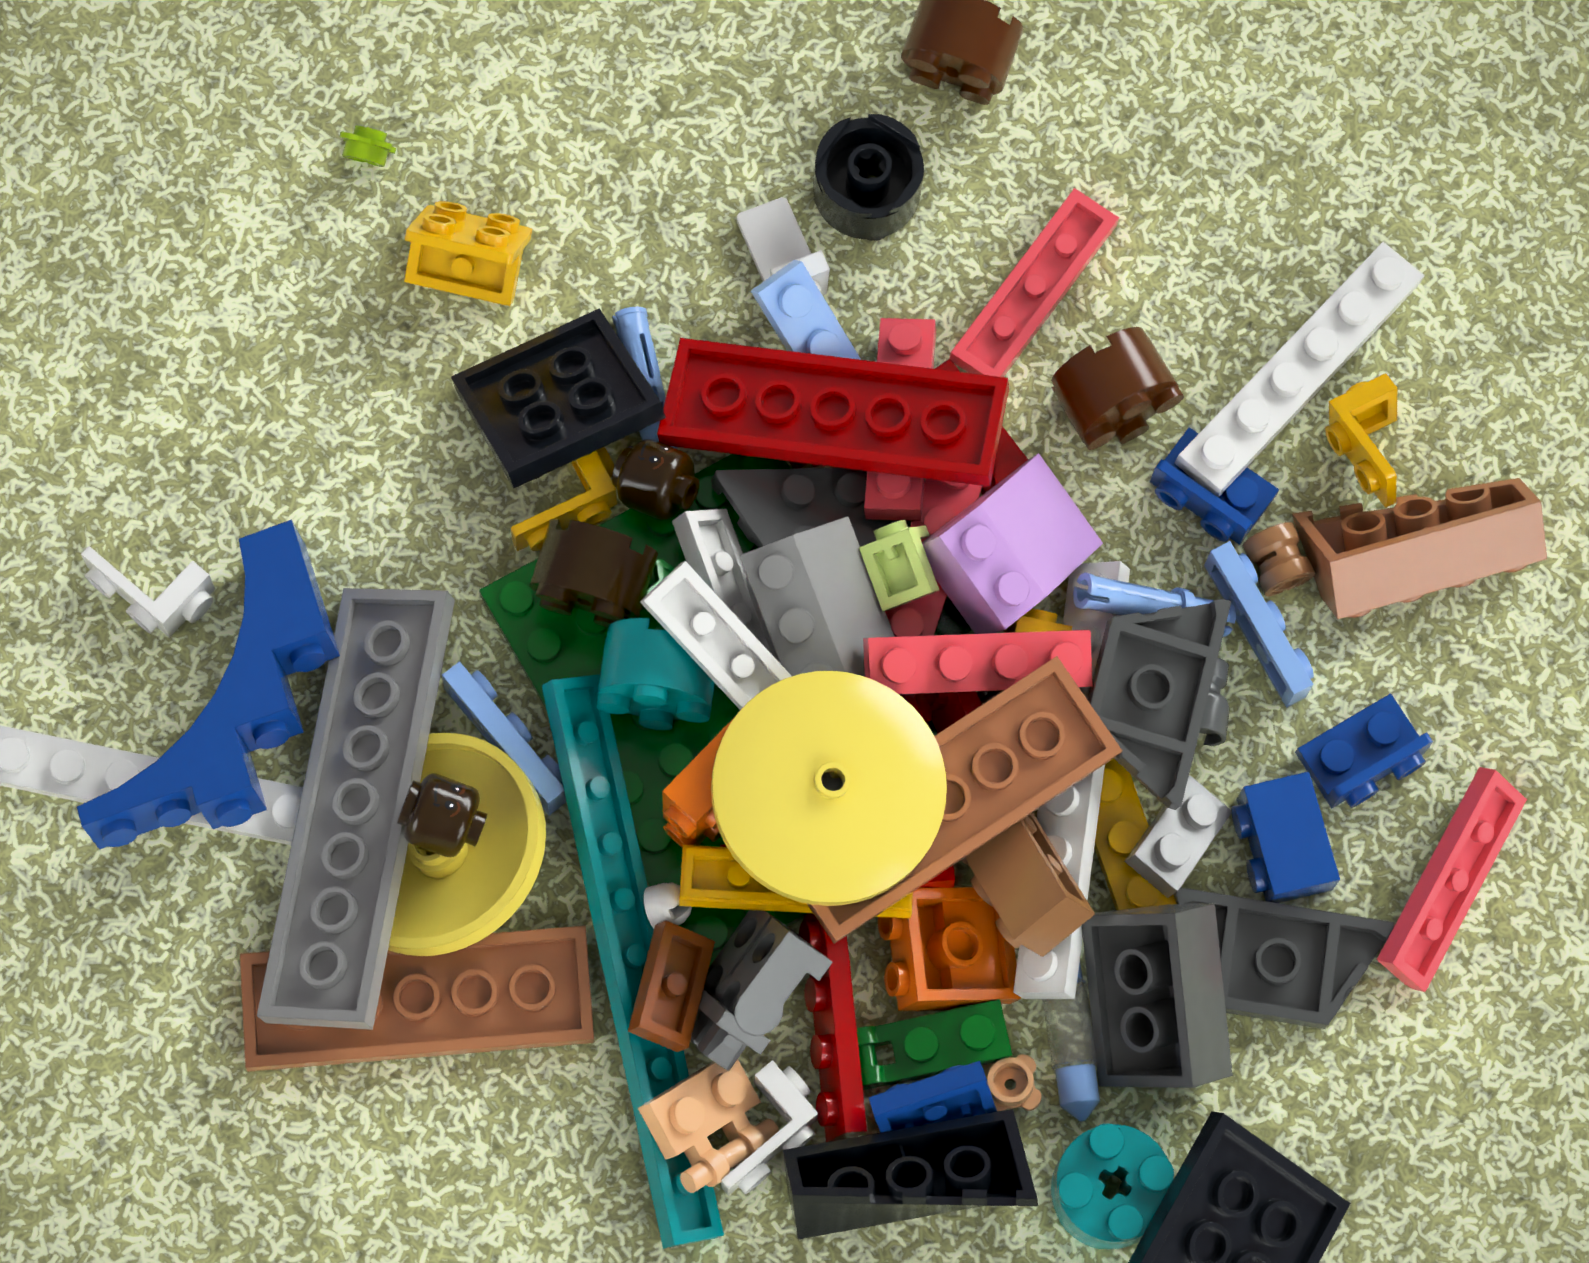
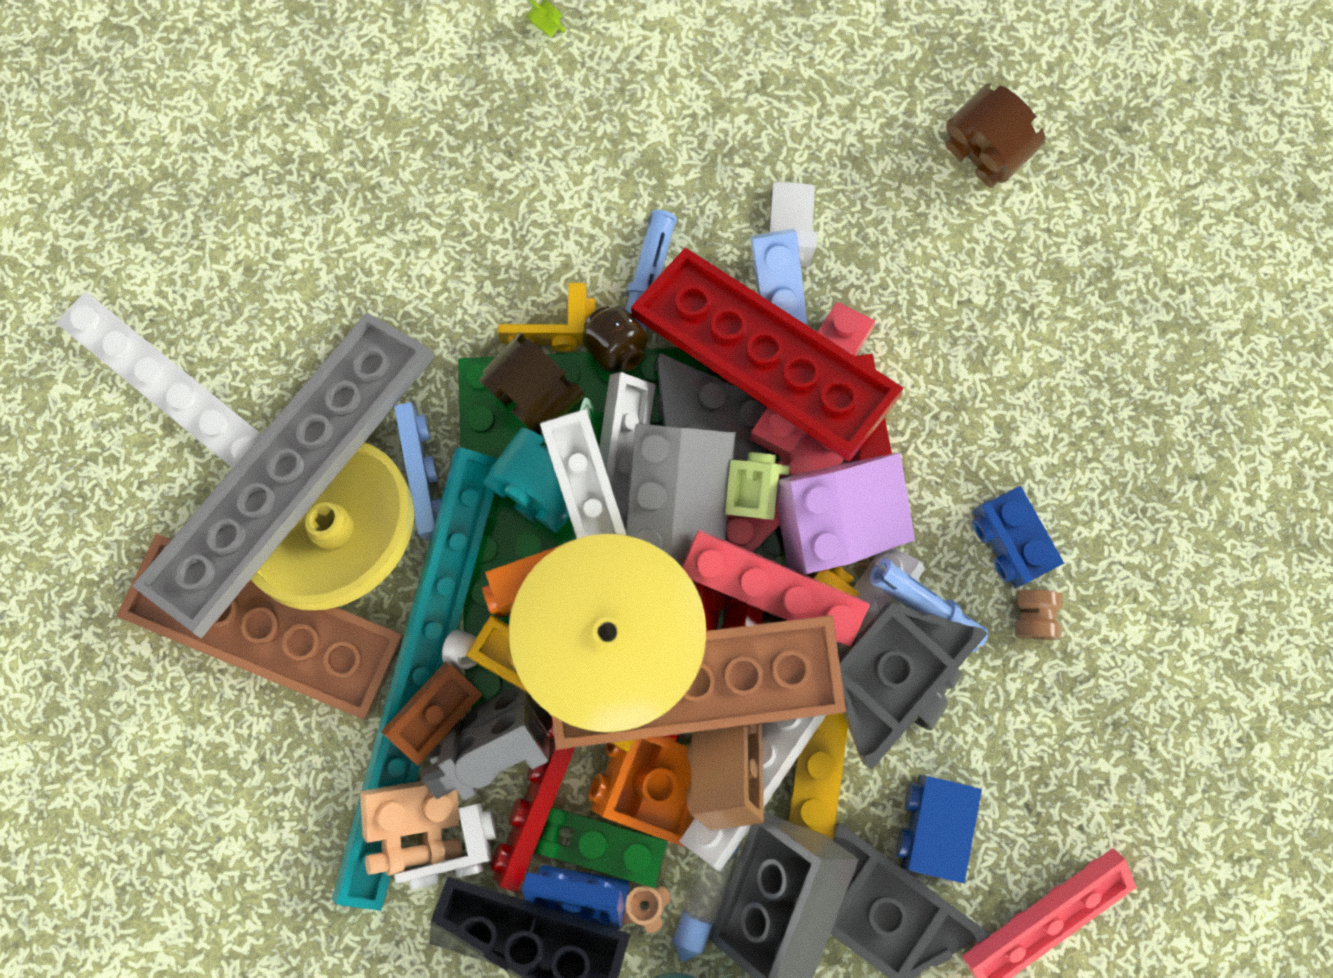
camera: 30 degrees right, 5 degrees up
(182, 600) = (253, 267): white bracket -> none
(252, 708) = (254, 363): blue arch -> none
(441, 815) = (328, 507): dark brown head -> none
(466, 252) = (572, 119): yellow bracket -> none
(557, 398) = (577, 250): black plate -> none
(841, 173) = (879, 196): black brick -> none
(1035, 287) = (959, 331): coral plate -> none
(1115, 388) = (981, 432): reddish brown brick -> none
(1178, 839) = (858, 789): plate -> none
(1260, 623) = (1001, 656): light blue plate -> none
(1299, 370) = (1123, 483): white plate -> none
(1355, 416) = (1143, 538): yellow bracket -> none
(1363, 751) = (1030, 789): blue bracket -> none
(1421, 545) = (1153, 657): wedge -> none

